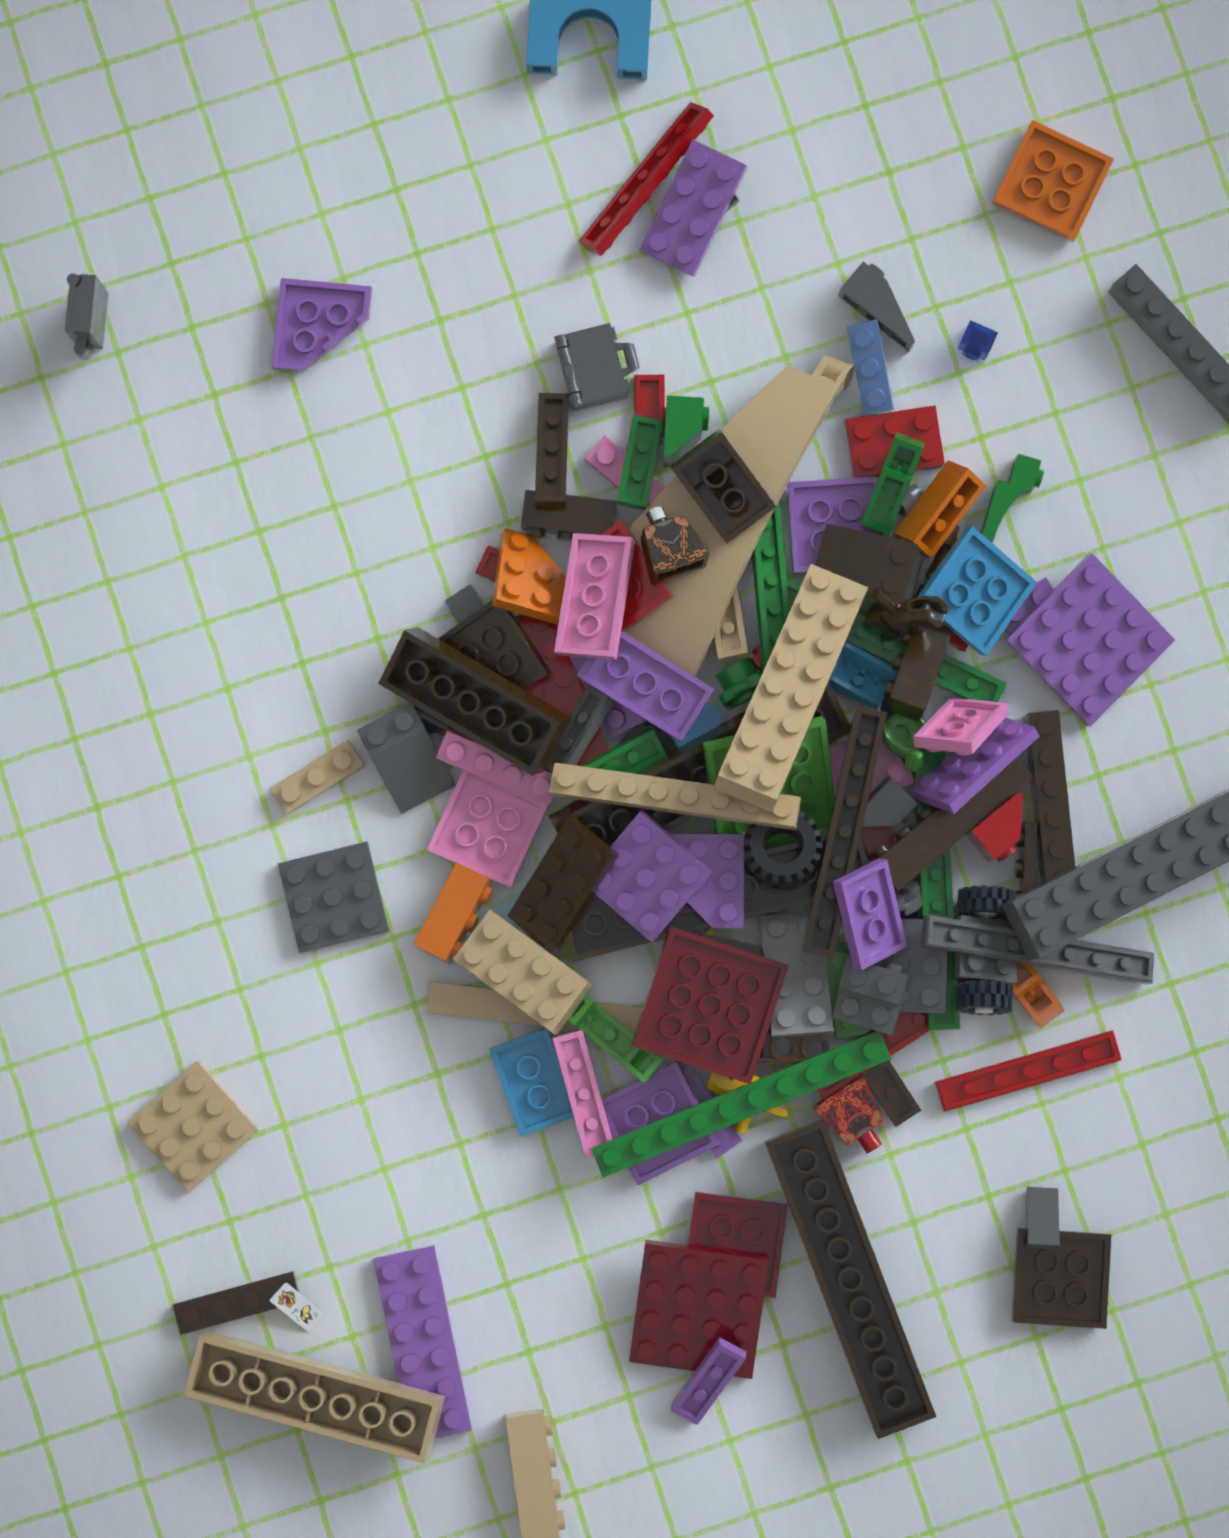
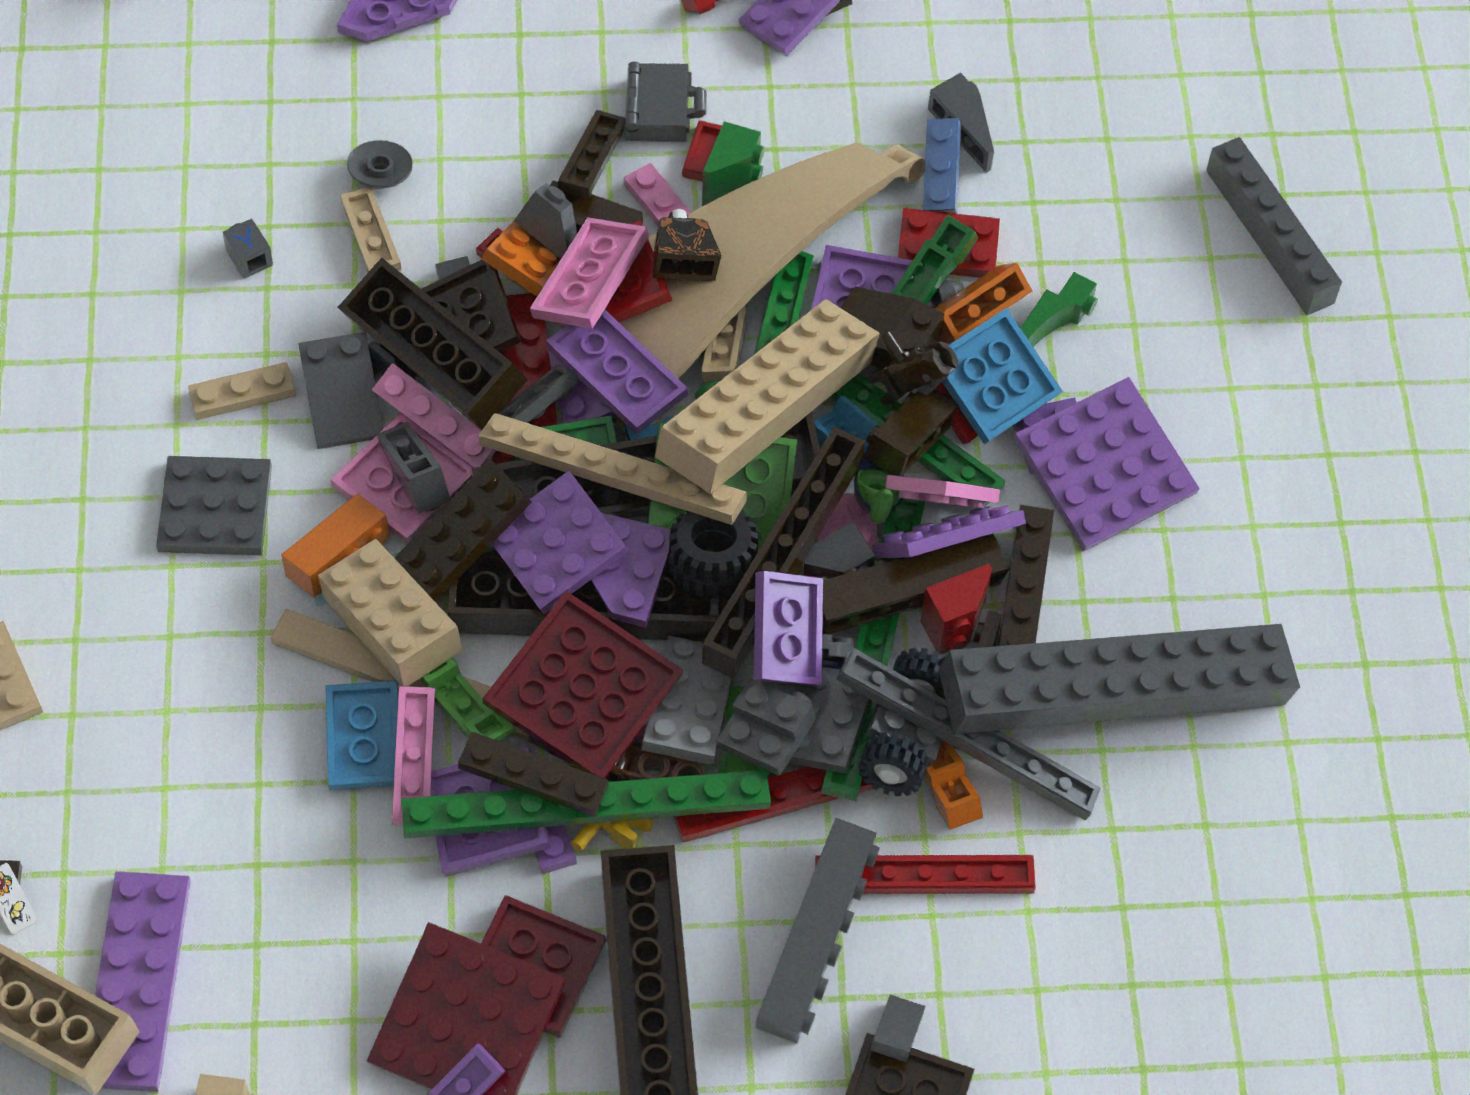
camera: 10 degrees right, 25 degrees down
(272, 633) = (247, 248): none -> dark grey brick
(357, 498) = (379, 164): none -> dark grey dish
(376, 583) = (369, 228): none -> tan plate
(496, 822) = (414, 467): none -> dark grey slope
(538, 540) = (549, 219): none -> dark grey slope
(639, 462) = (677, 184): green plate -> none
(693, 1099) = (533, 774): none -> dark brown plate
(722, 486) = (754, 205): dark brown slope -> none
(852, 1114) = (709, 861): torso -> none
(891, 1093) = (761, 852): dark brown plate -> none
(956, 1153) = (816, 931): none -> dark grey brick
(977, 341) = (1059, 172): clear blue plate -> none
(1052, 180) = (1173, 61): orange plate -> none

